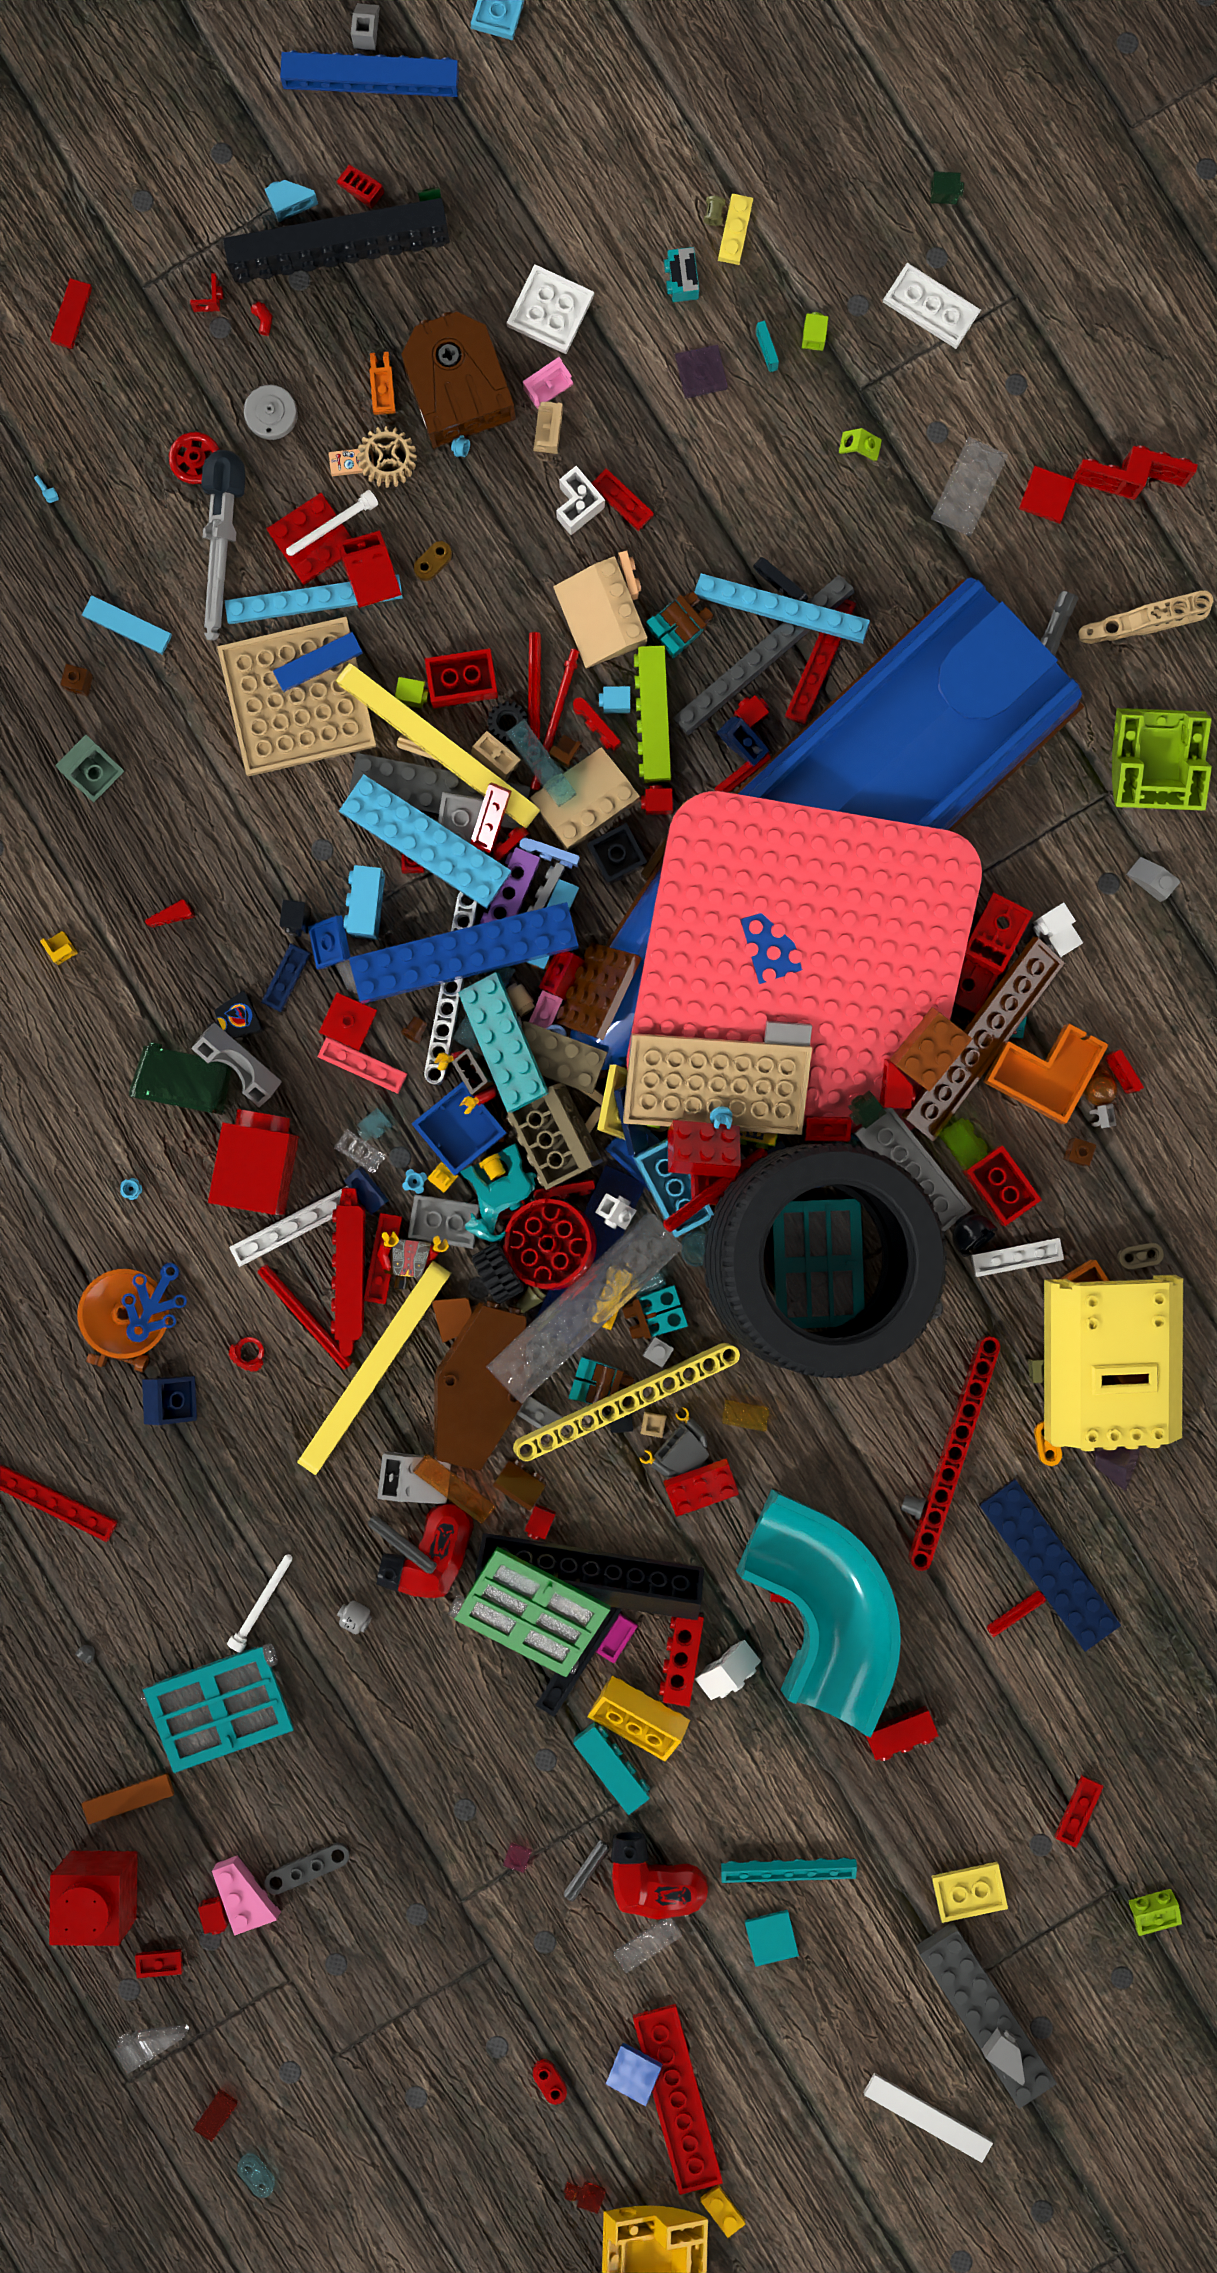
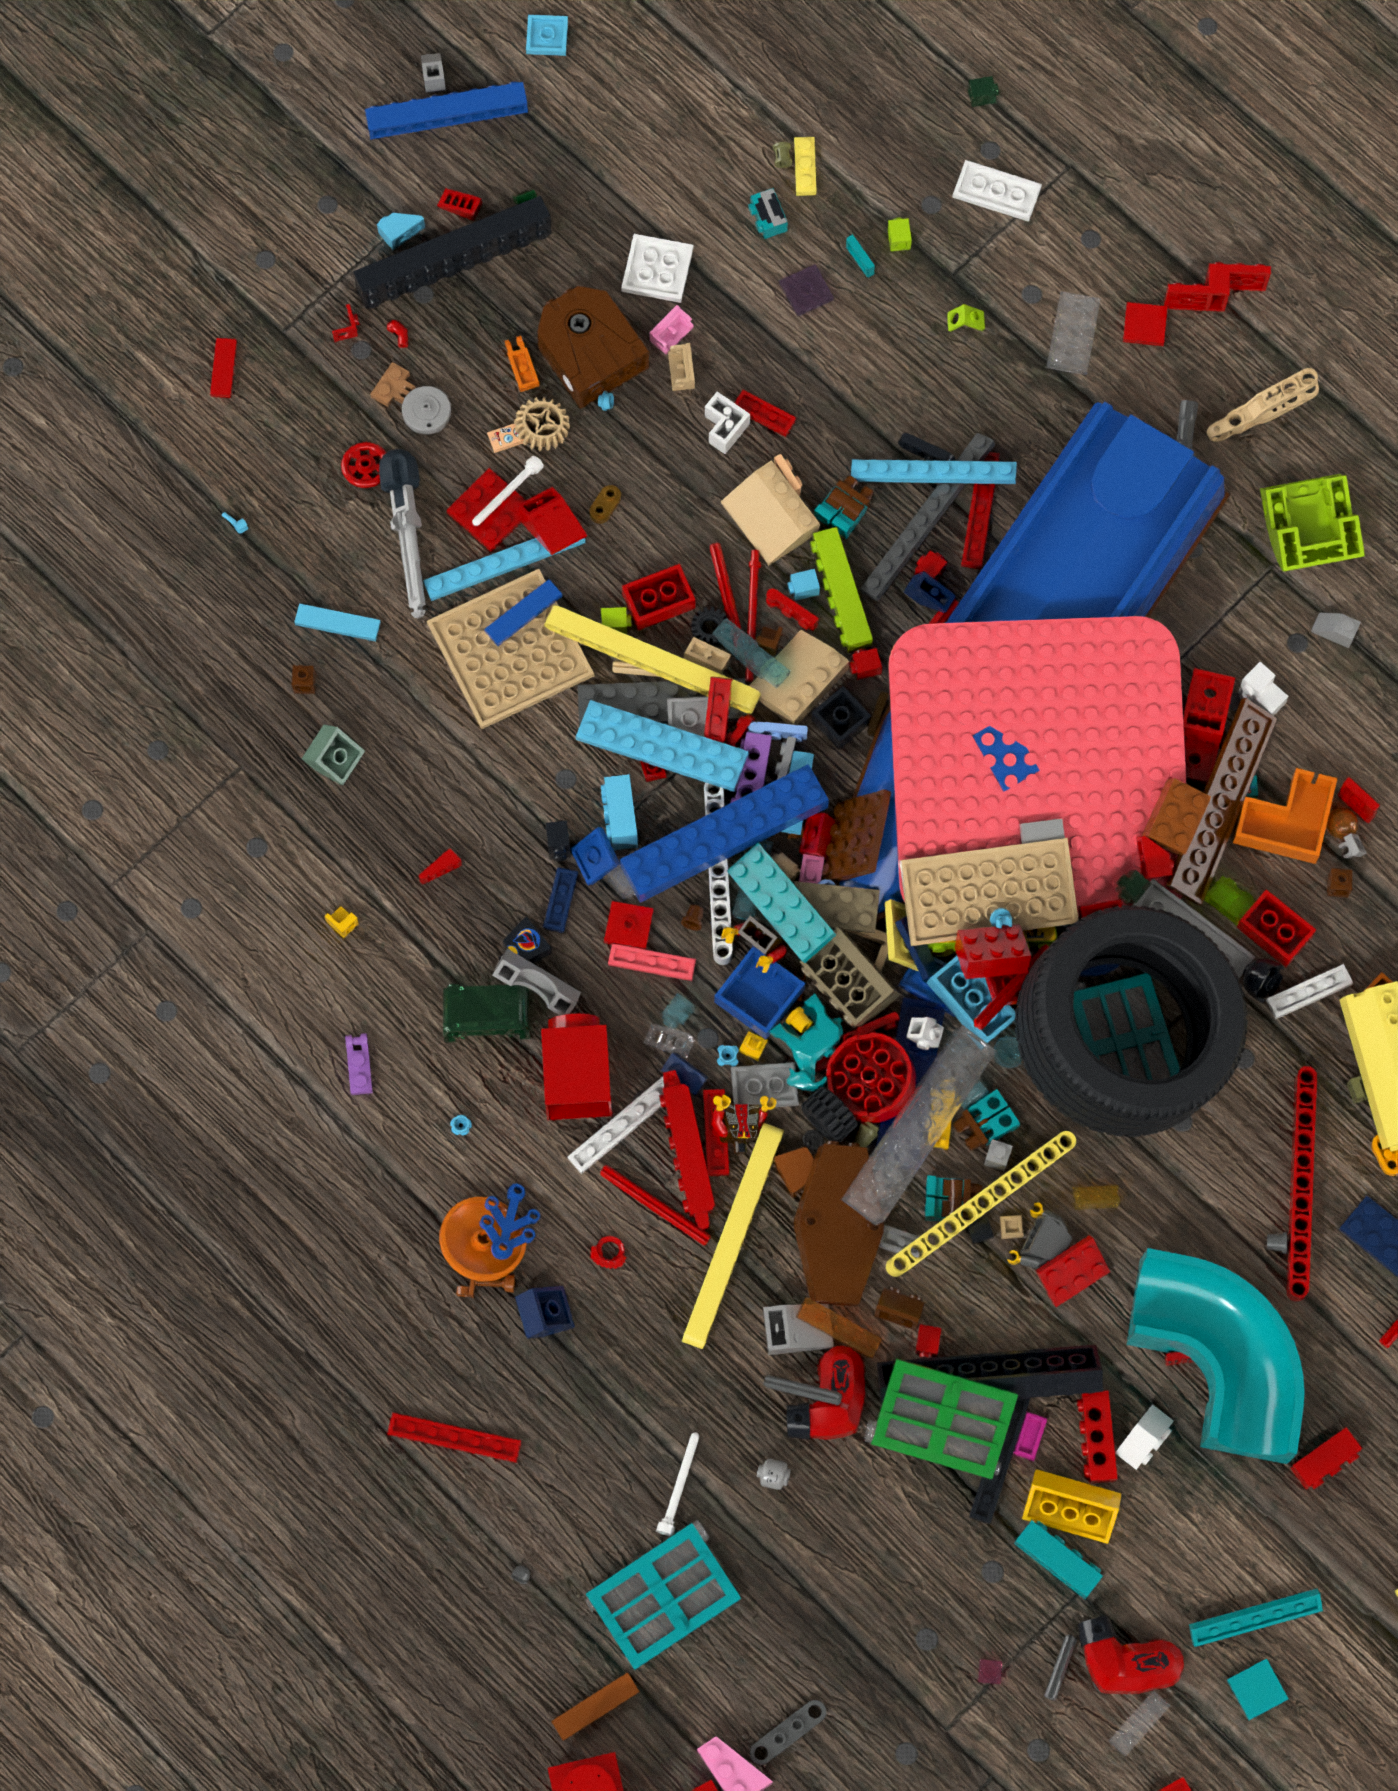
camera: 15 degrees left, 15 degrees down
(43, 1101) = (359, 1065): none -> medium lavender plate
(242, 375) = (392, 385): none -> medium nougat hinge

